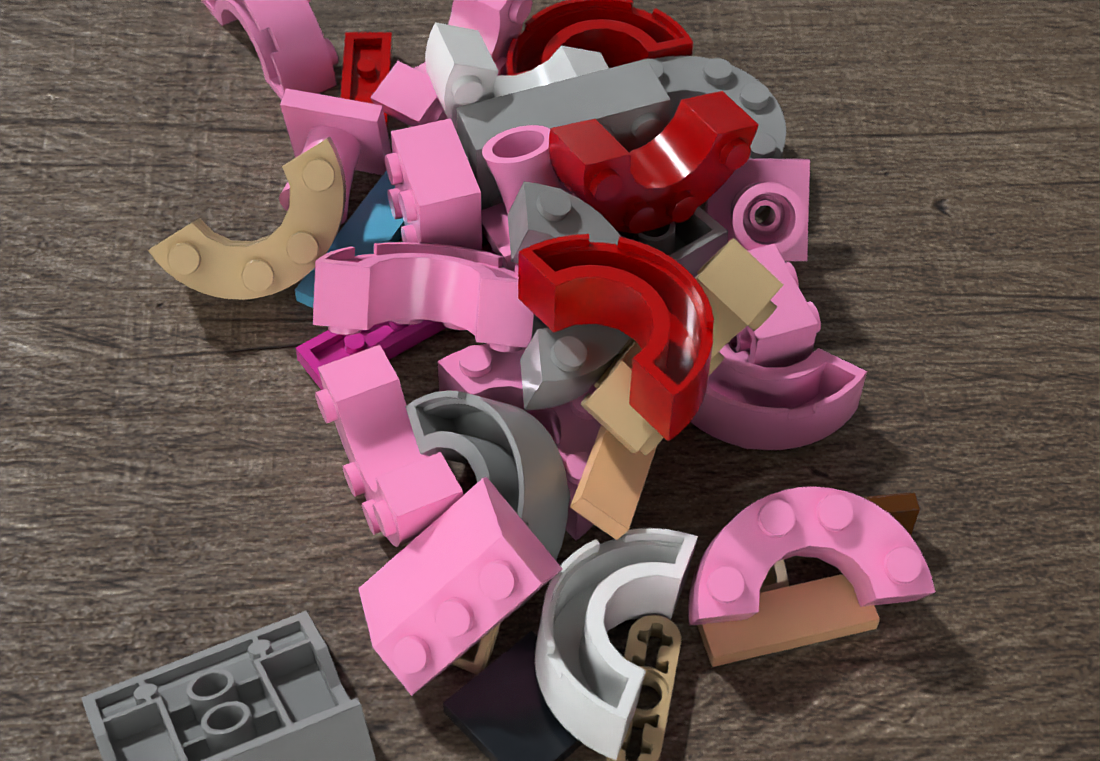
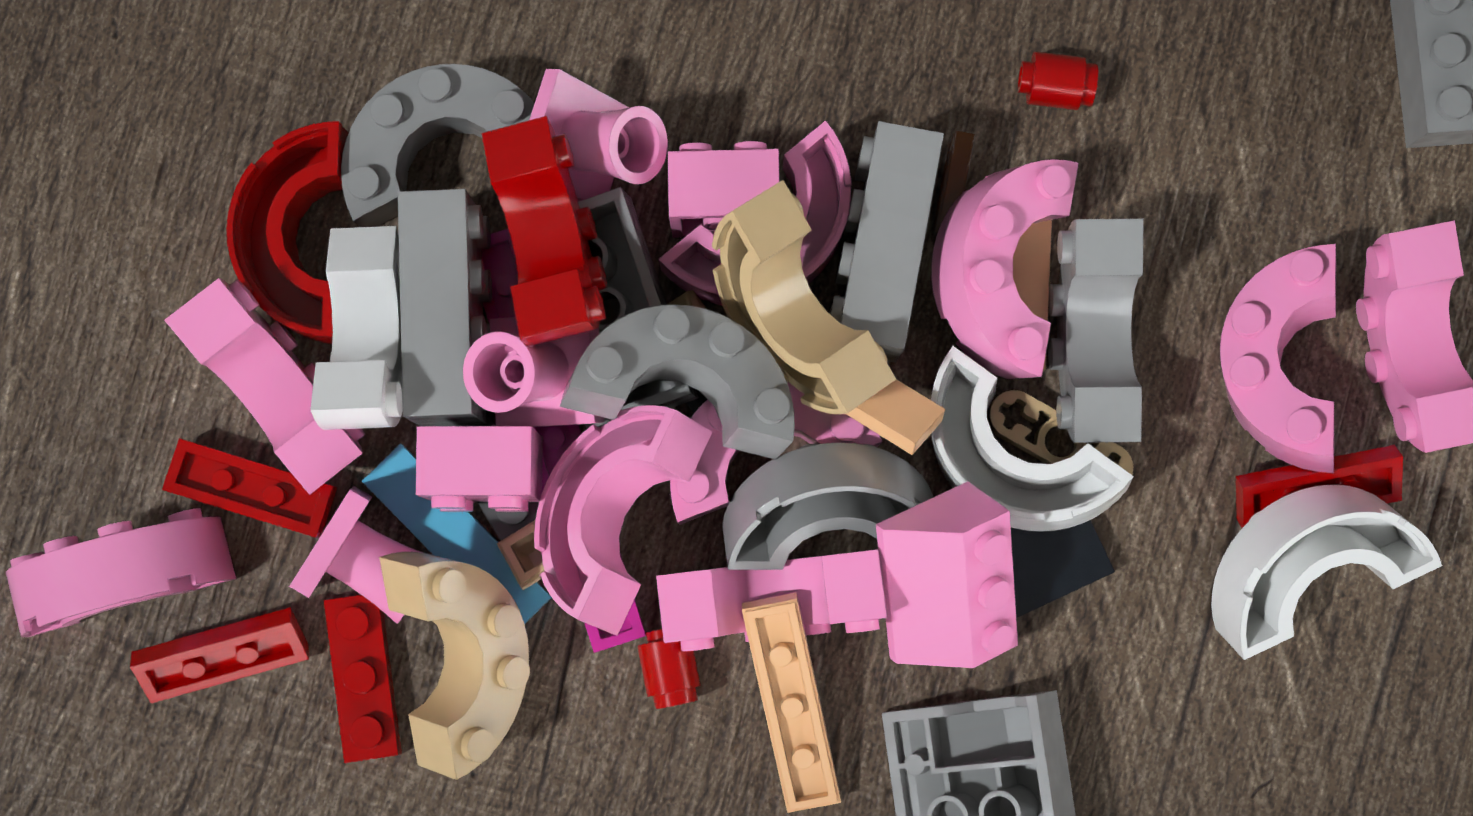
camera: 70 degrees left, 30 degrees up
(219, 102) = (219, 655): none -> red plate
(224, 201) = (362, 679): none -> red plate
(289, 509) = (791, 702): none -> light nougat tile
(292, 413) = (667, 671): none -> red brick
(641, 295) = (783, 308): red brick -> none
(750, 452) = (889, 233): none -> light grey brick
(783, 683) = (1094, 330): none -> light grey brick
(1014, 585) = (1058, 81): none -> red brick

